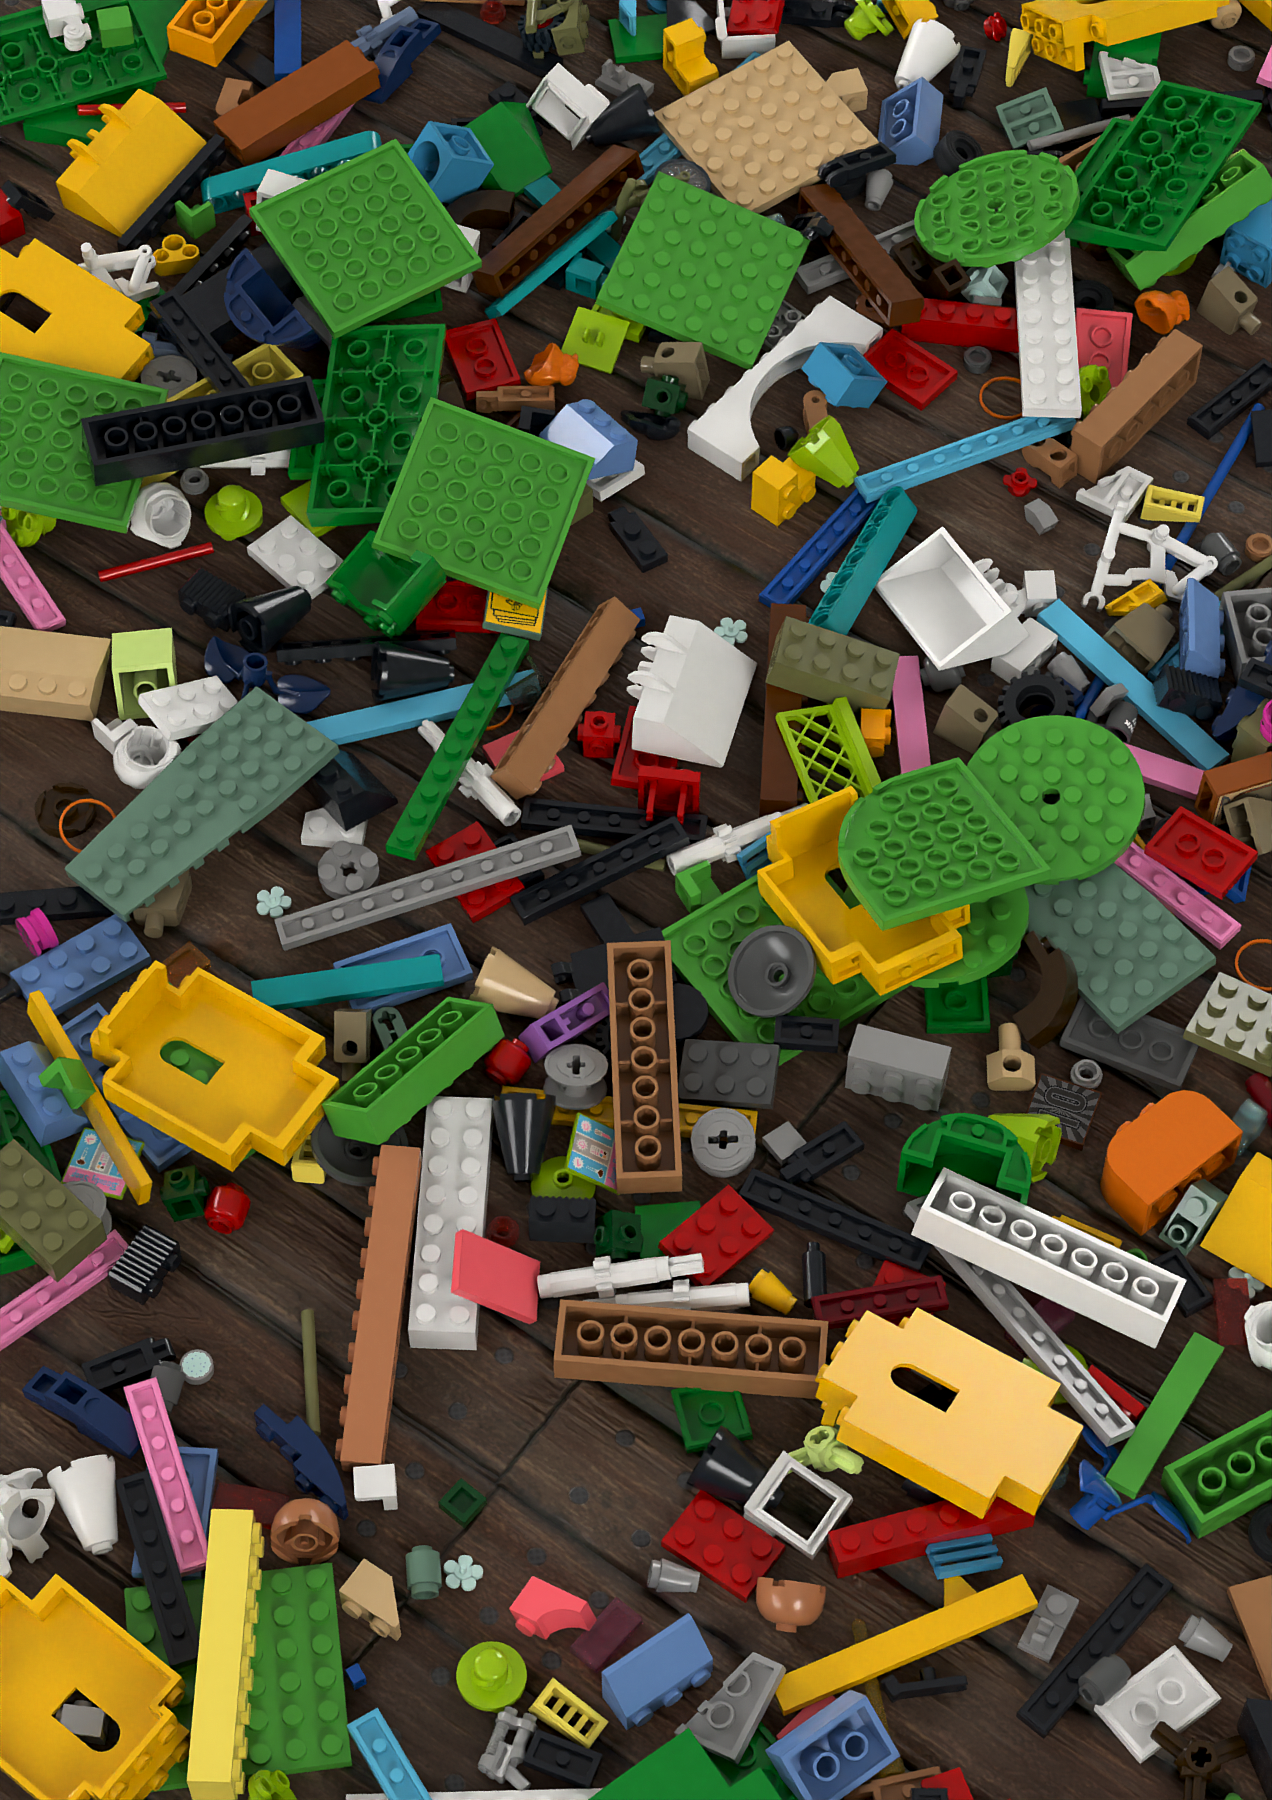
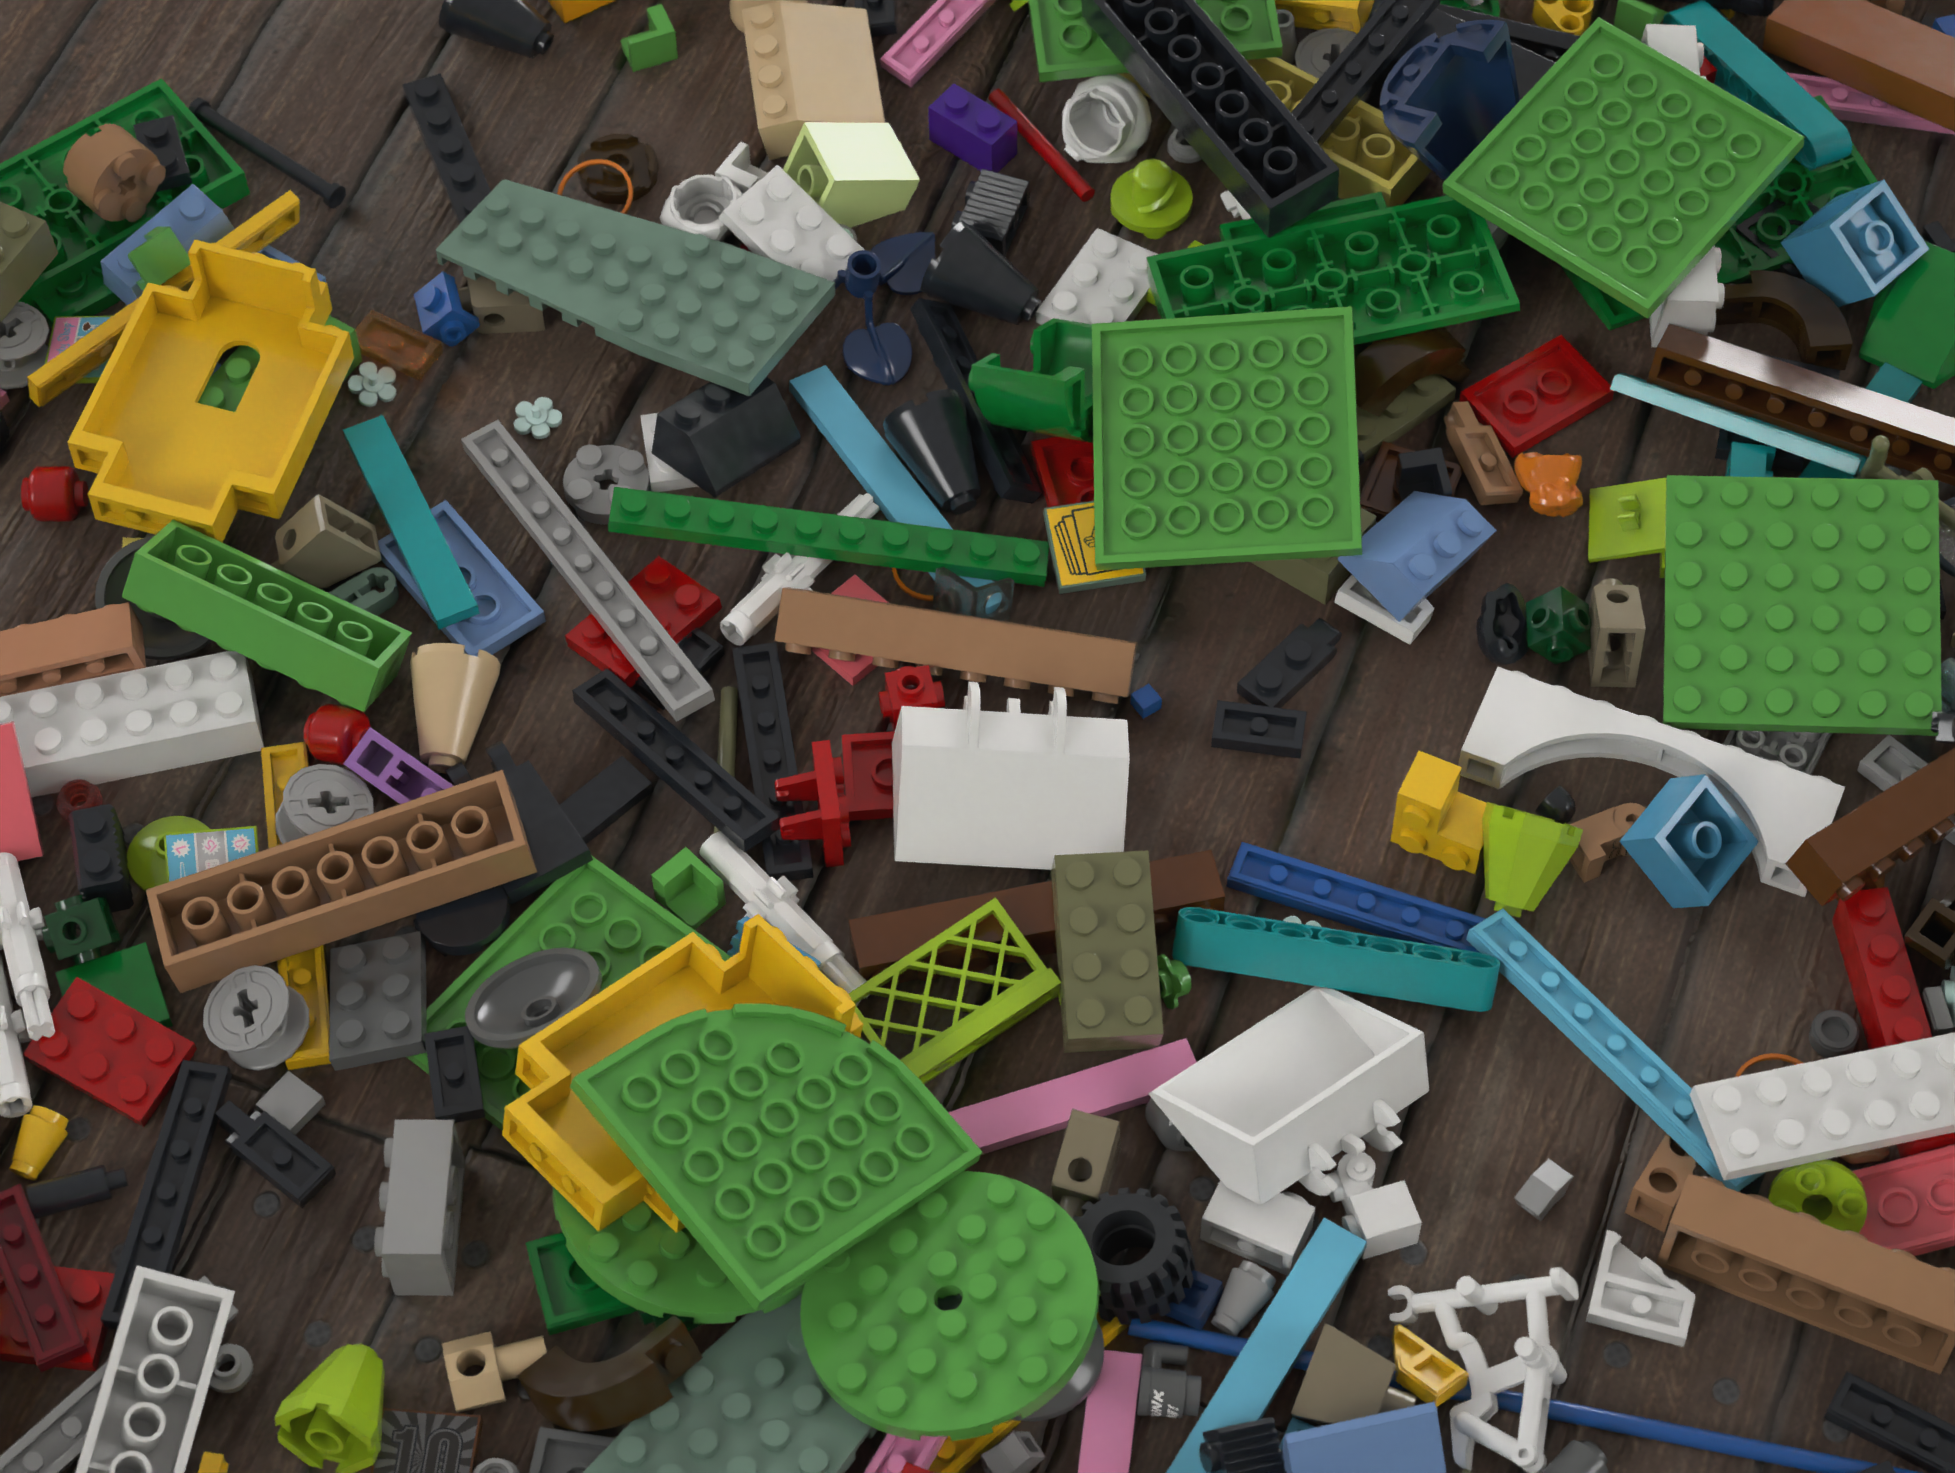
camera: 75 degrees right, 0 degrees up
(36, 932) = (409, 185): dark pink wheel -> none
(83, 965) = (376, 247): medium blue plate -> none
(134, 591) = (972, 129): none -> dark purple brick
(164, 931) = (442, 311): none -> blue bracket
(184, 1193) = (49, 436): dark green brick -> none
(523, 1131) = (222, 771): black cone -> none
(681, 564) = (1258, 729): none -> black plate
(732, 632) = (1165, 826): light aqua plant -> none
(876, 729) = (1032, 1048): light orange brick -> none
(910, 369) = (1760, 937): red plate -> none
(970, 1147) = (242, 1395): green cylinder -> none
(1019, 488) = (1598, 1158): red plate -> none
(1108, 699) = (1199, 1361): light grey tile -> none
(1155, 509) = (1637, 1345): light yellow slope -> none

